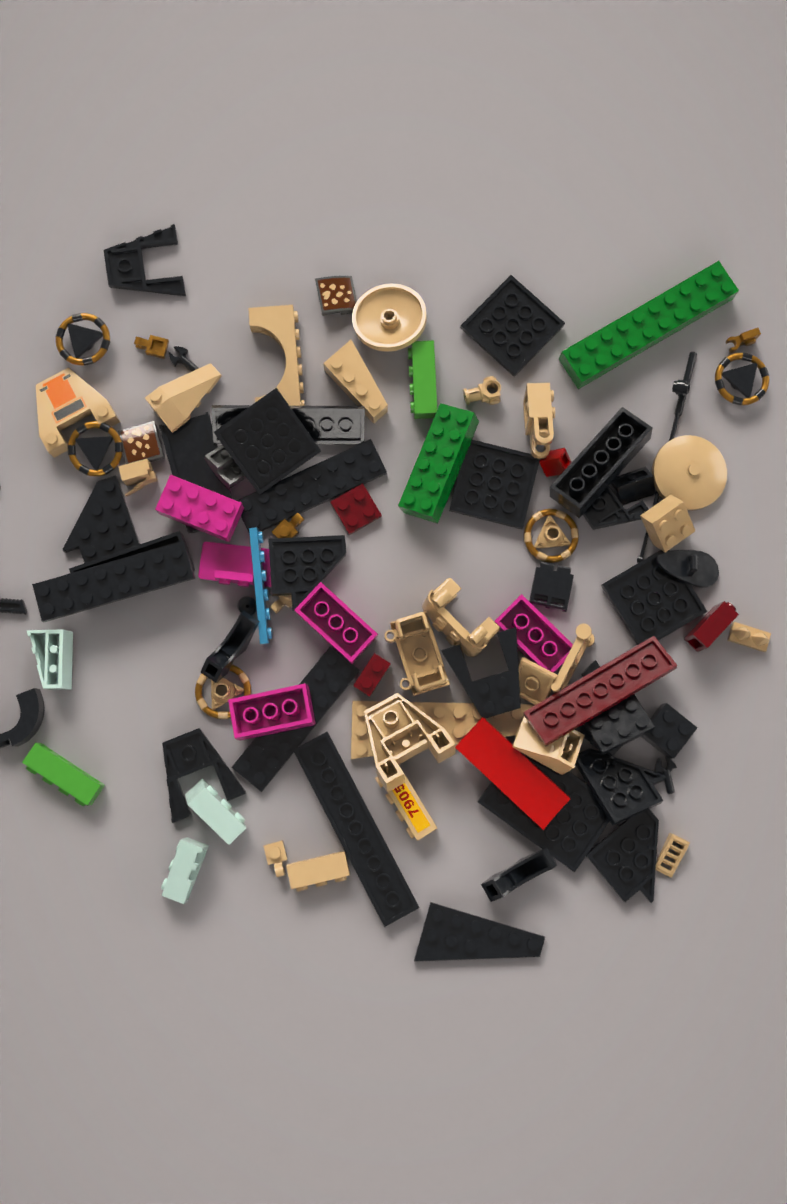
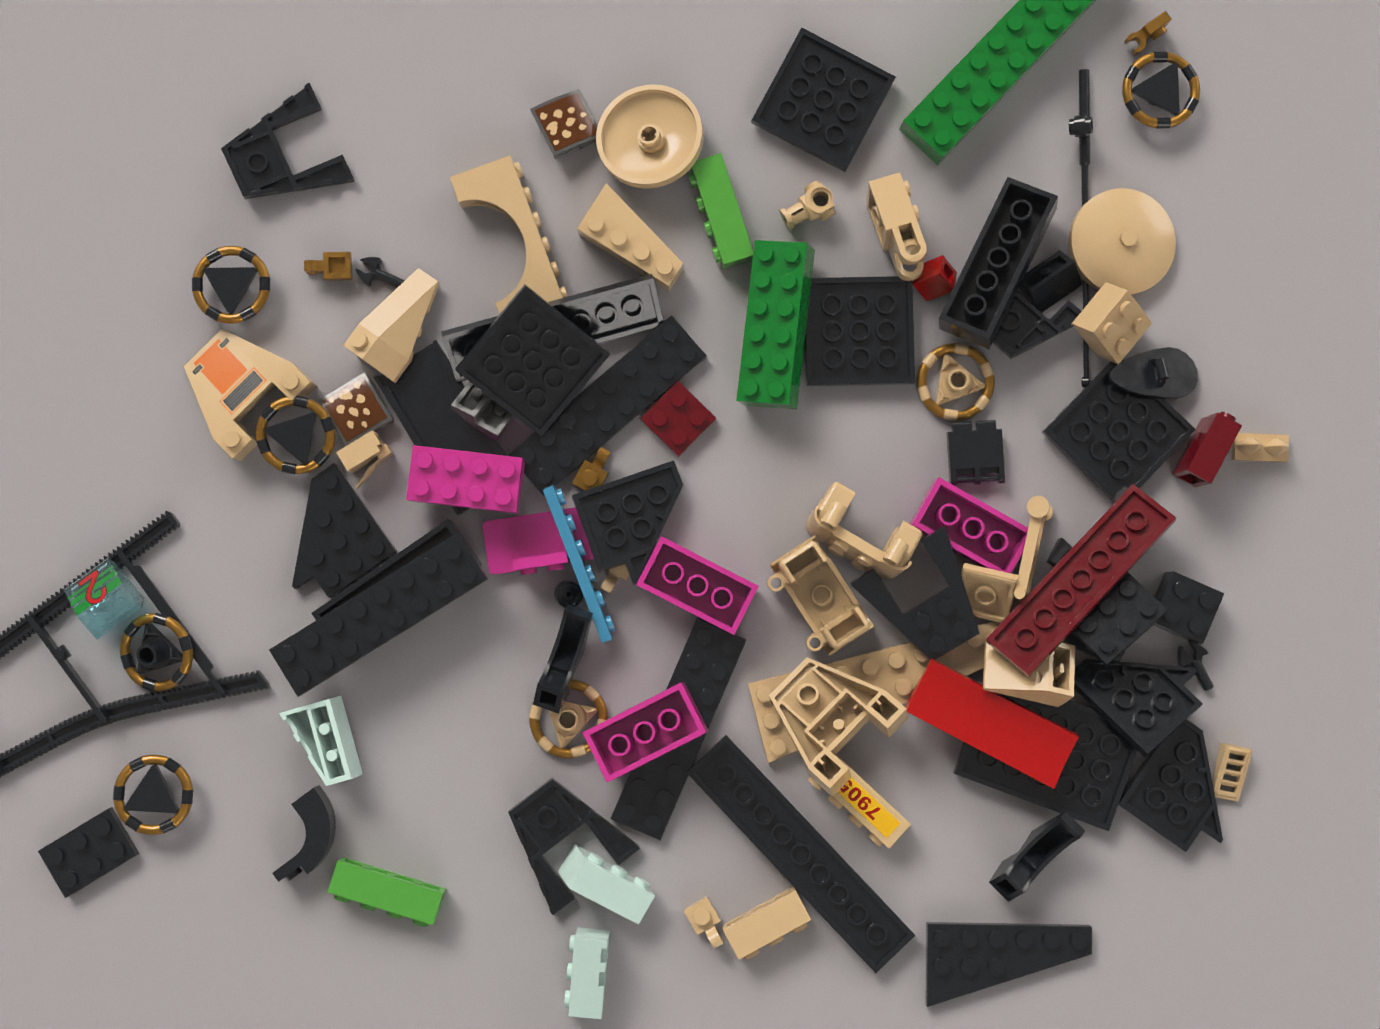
camera: 15 degrees left, 5 degrees up
(372, 675) = (765, 642): dark red brick -> none

